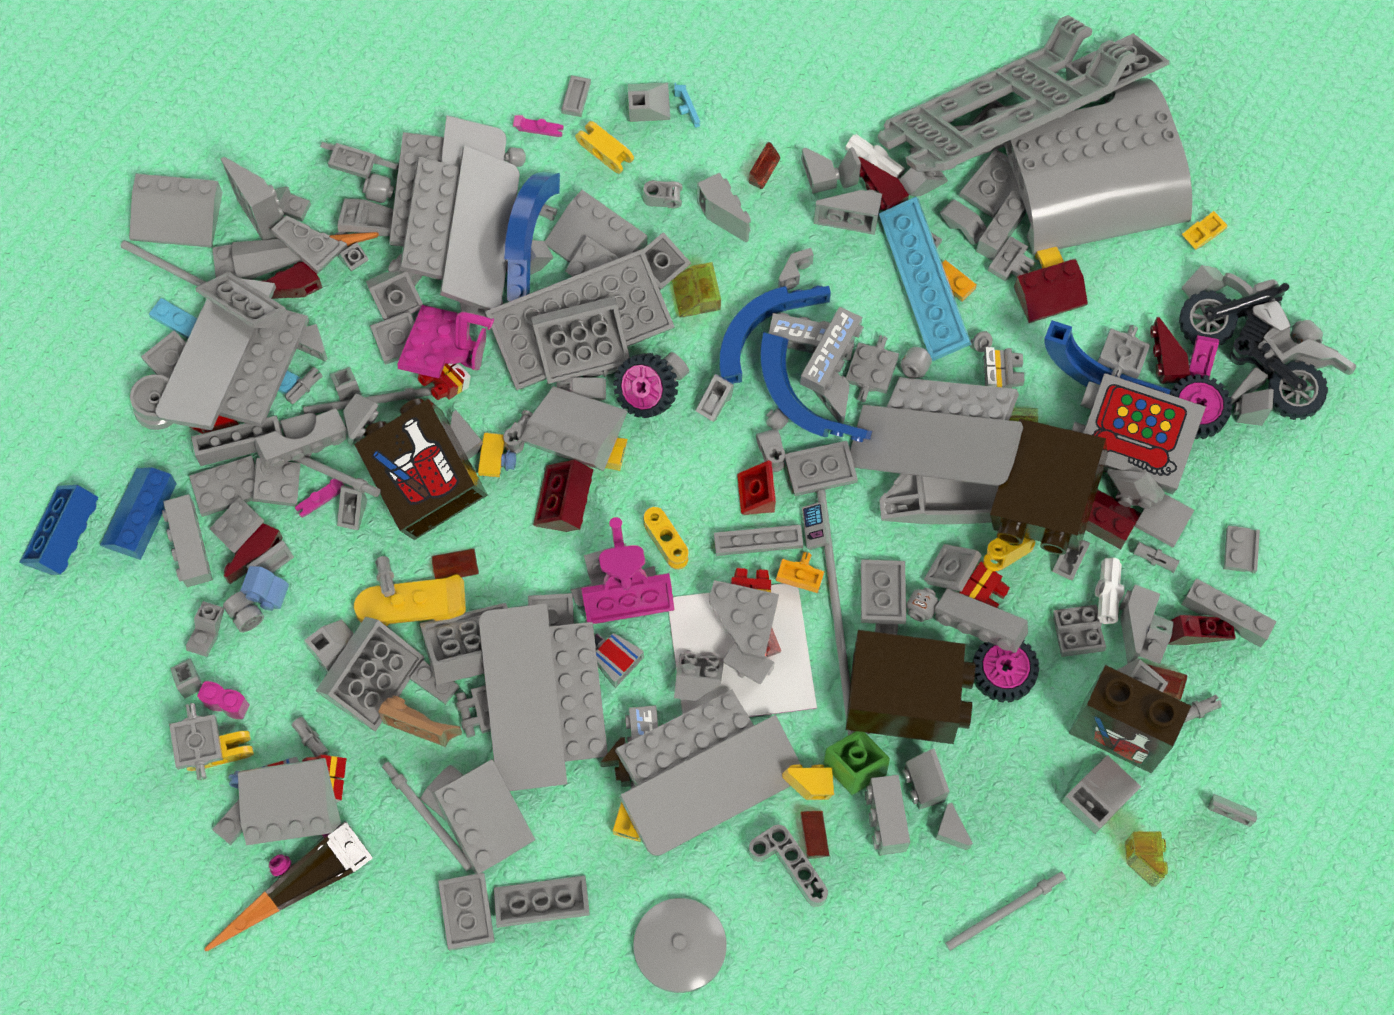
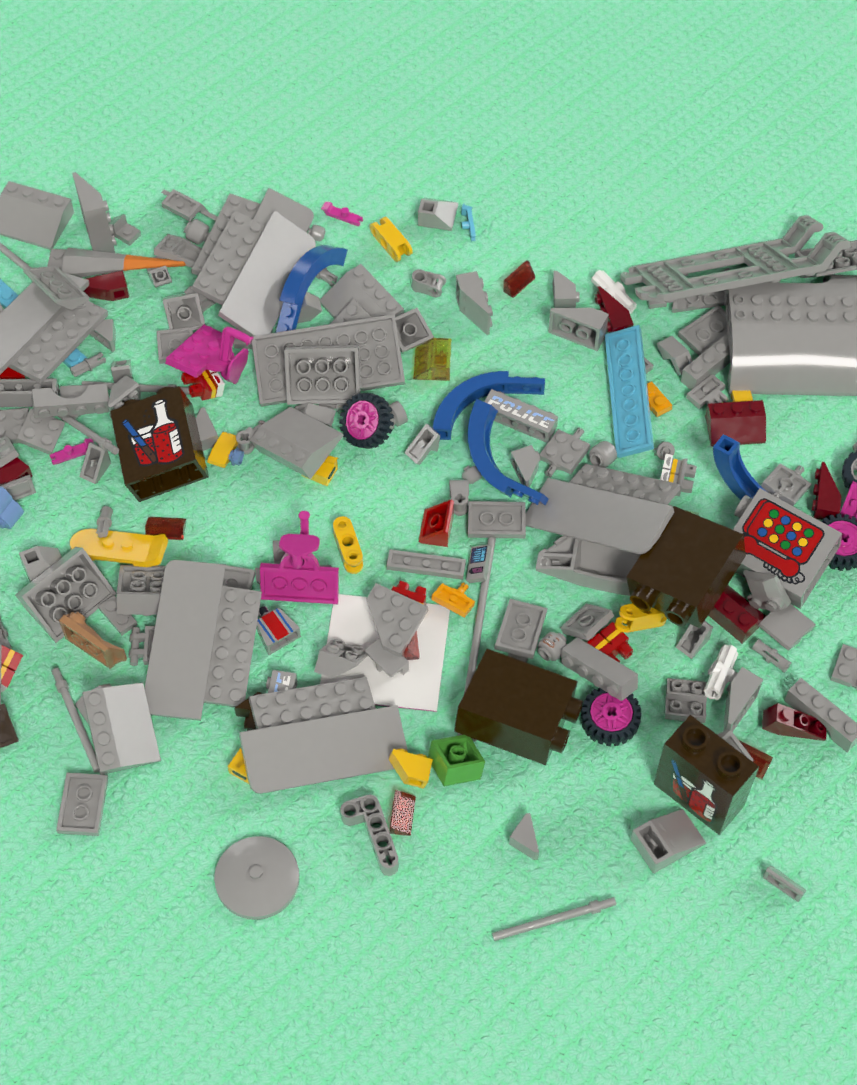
camera: 15 degrees right, 10 degrees down
(310, 246) = (125, 258): light grey wing -> none
(541, 901) = (149, 810): light grey slope -> none
(563, 496) = (272, 493): dark red slope -> none
(576, 96) = (380, 198): light grey tile -> none
(790, 274) = (522, 356): light grey slope -> none
(831, 351) = (531, 426): light grey brick -> none
(849, 169) = (589, 293): light grey slope -> none
(887, 815) = (469, 810): light grey brick -> none
(922, 182) = (649, 315): light grey slope -> none
(926, 780) = (513, 789): light grey slope -> none
(1145, 856) = (694, 899): clear yellow slope -> none
(1157, 639) = (750, 719): light grey torso -> none
(1199, 709) = (775, 790): light grey pin -> none

